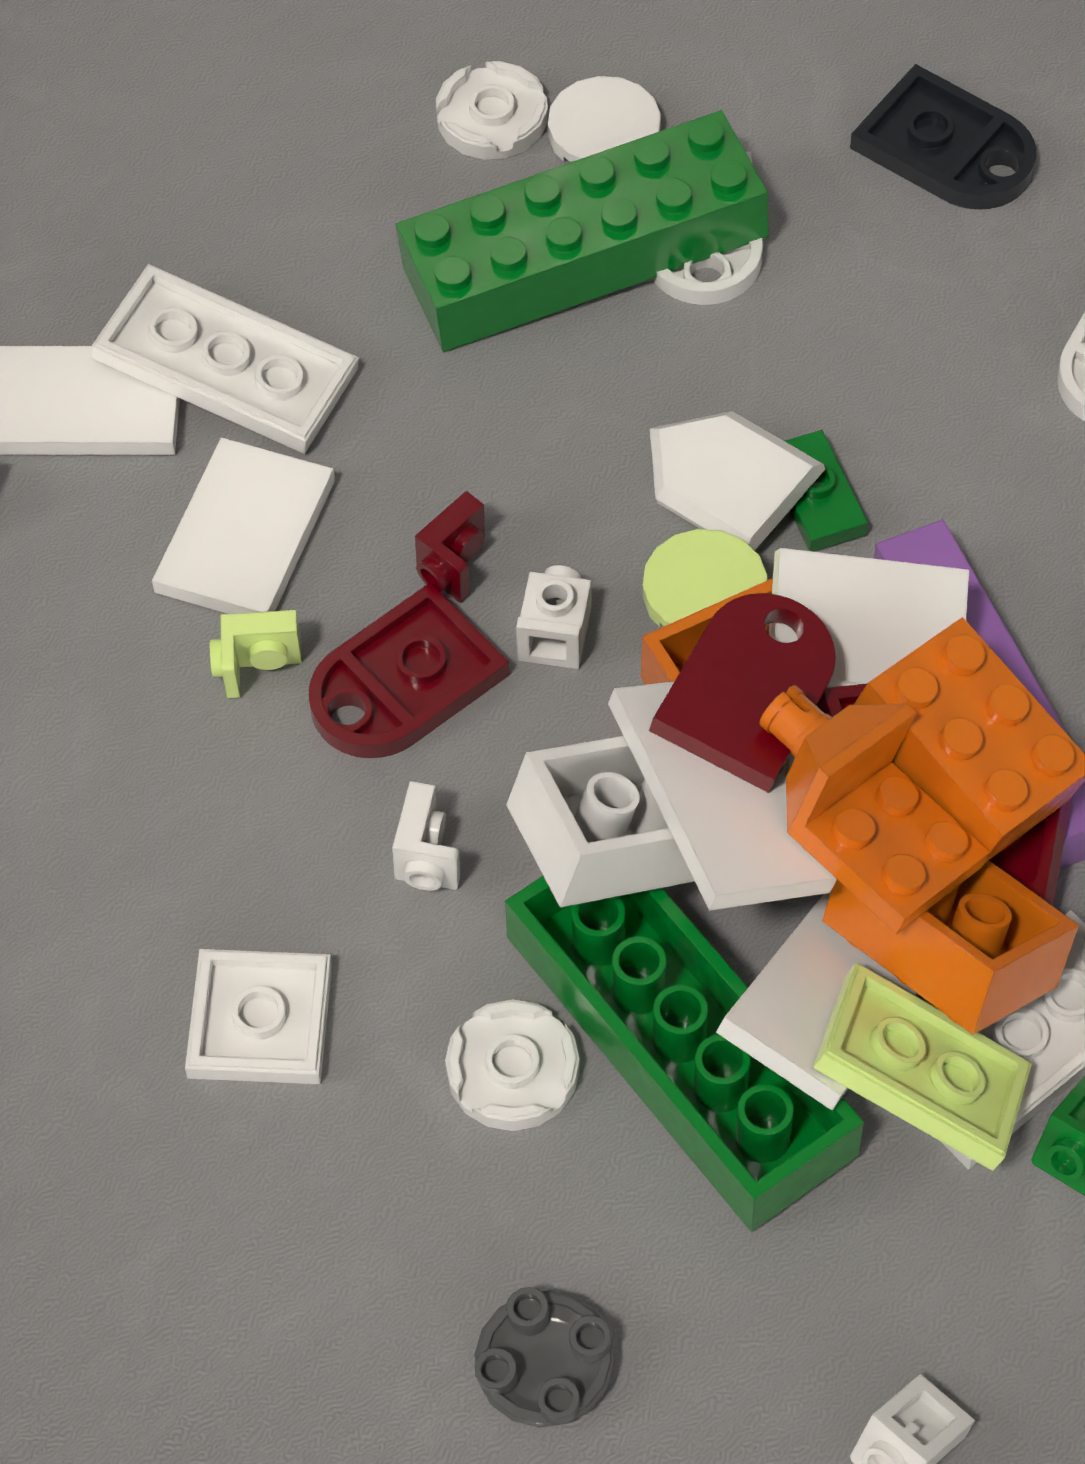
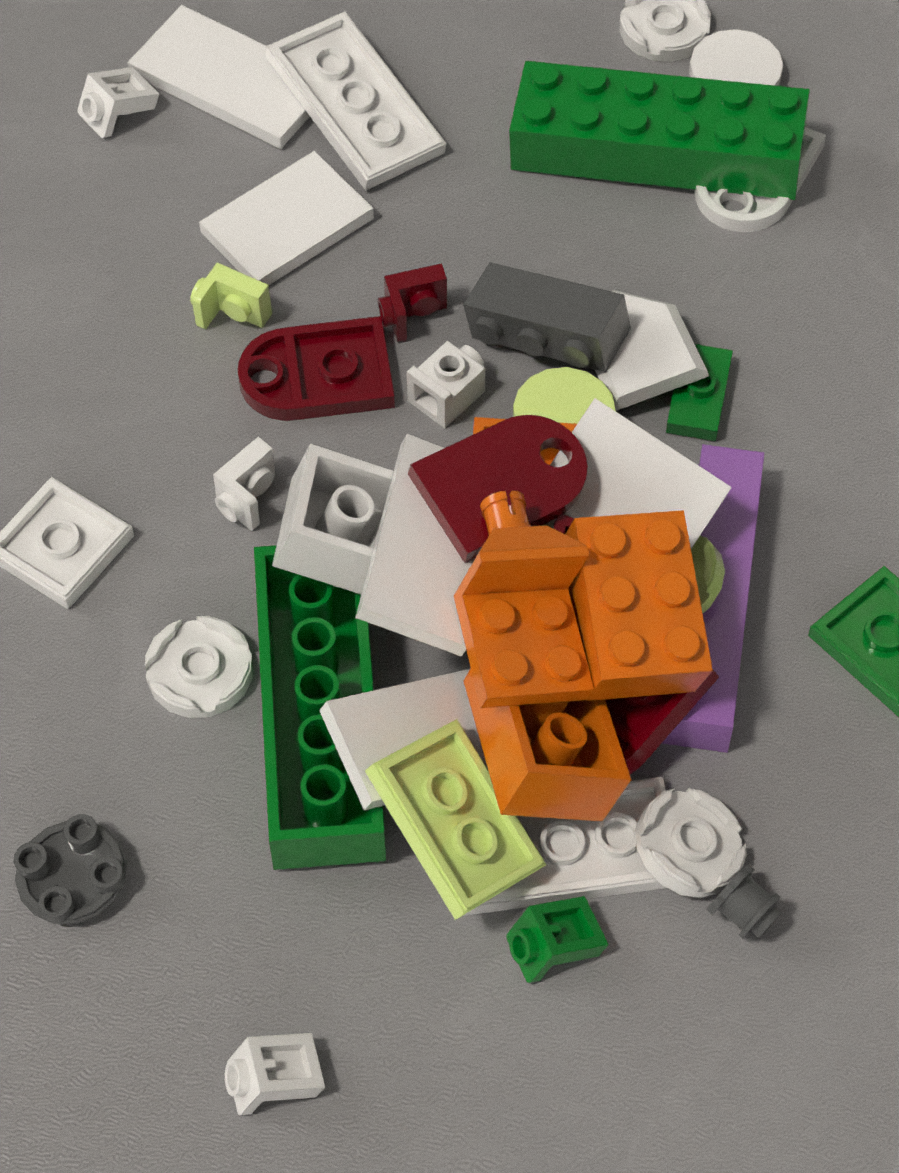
camera: 30 degrees right, 0 degrees up
(614, 491) = (547, 316): none -> dark grey brick

